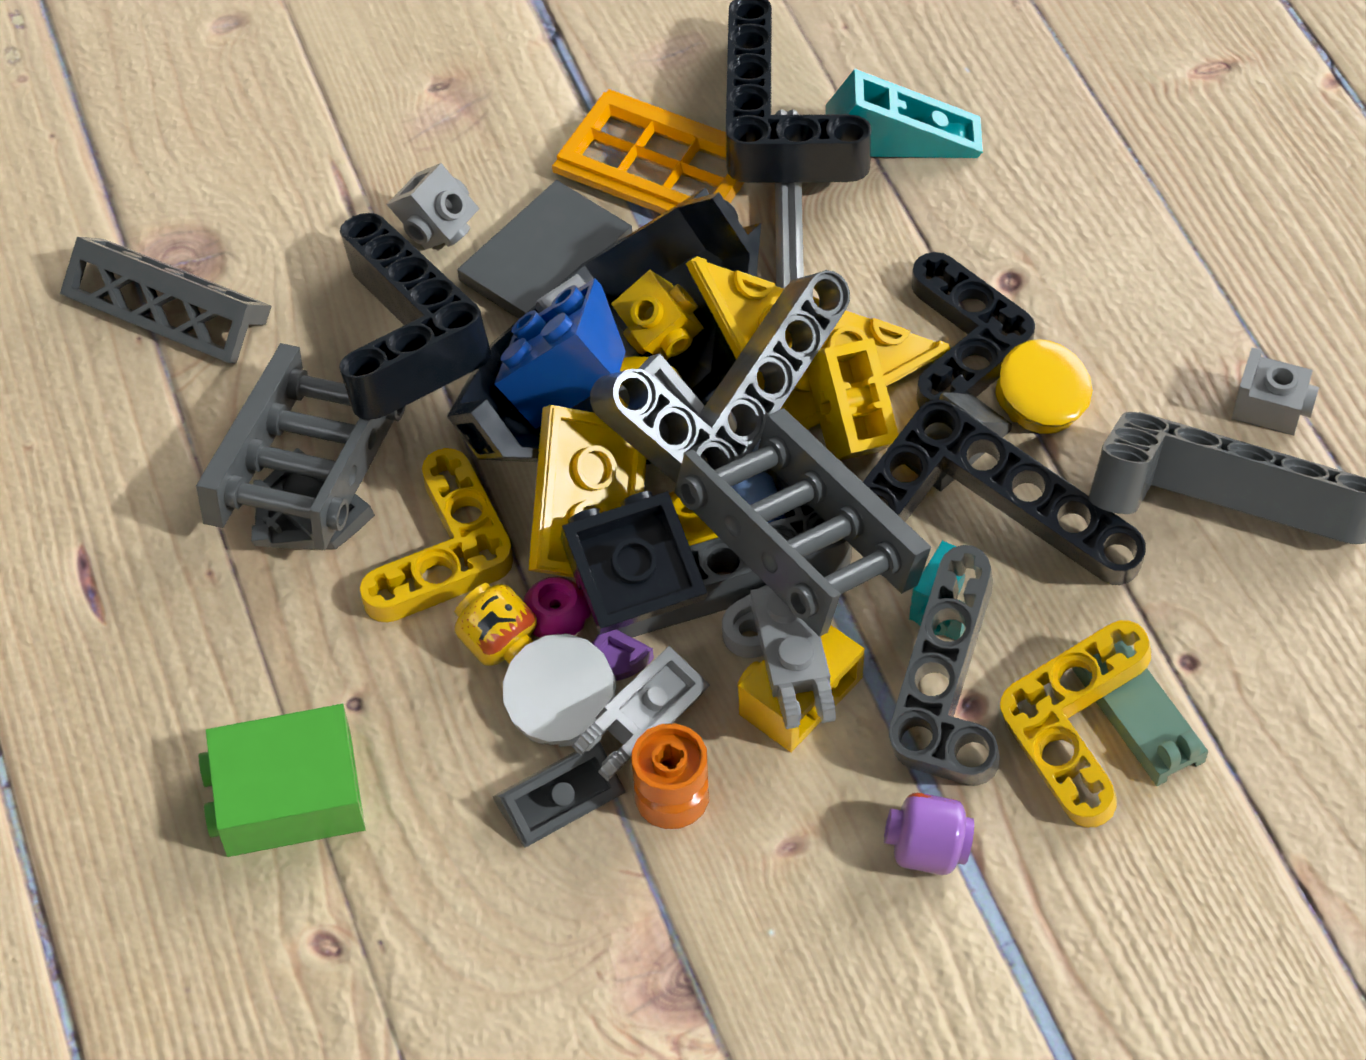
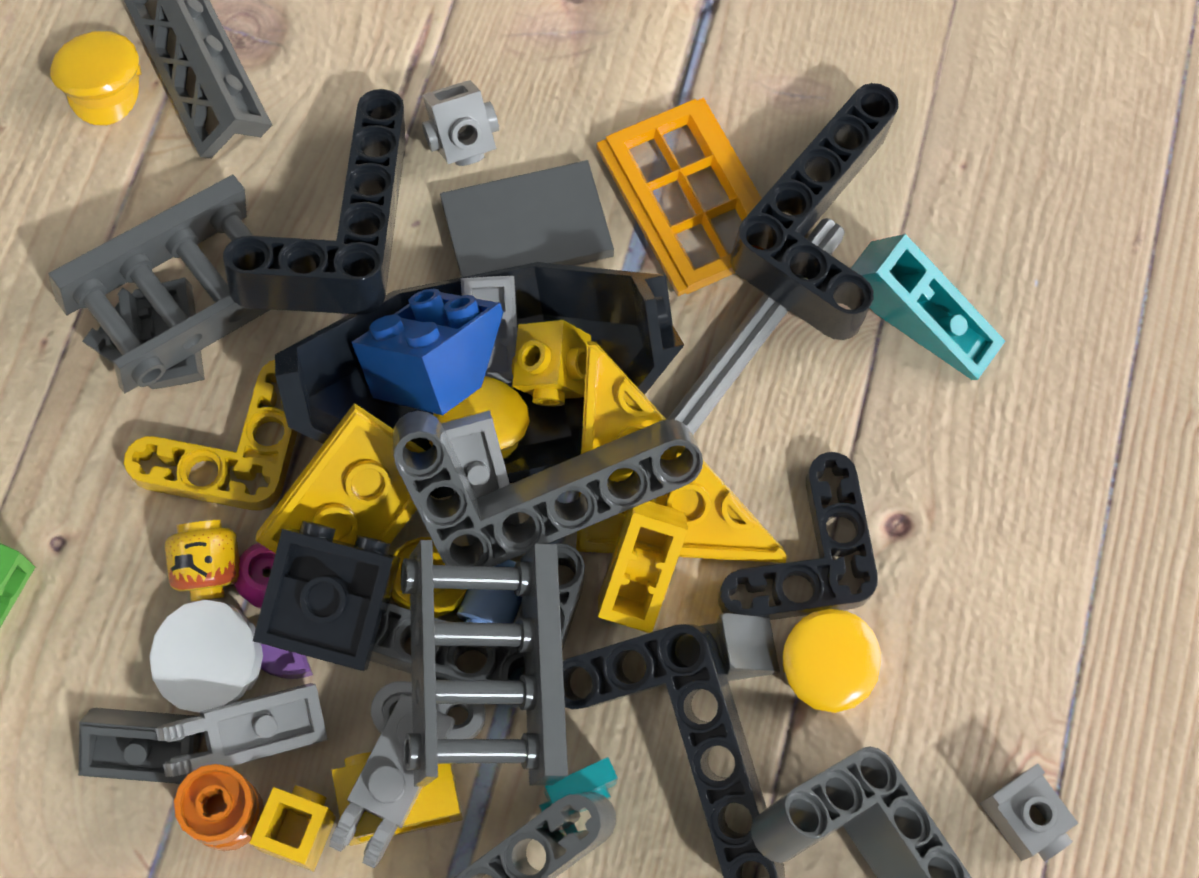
camera: 30 degrees right, 15 degrees up
(89, 355) = (98, 76): none -> yellow piece
(744, 749) = (294, 827): none -> yellow brick

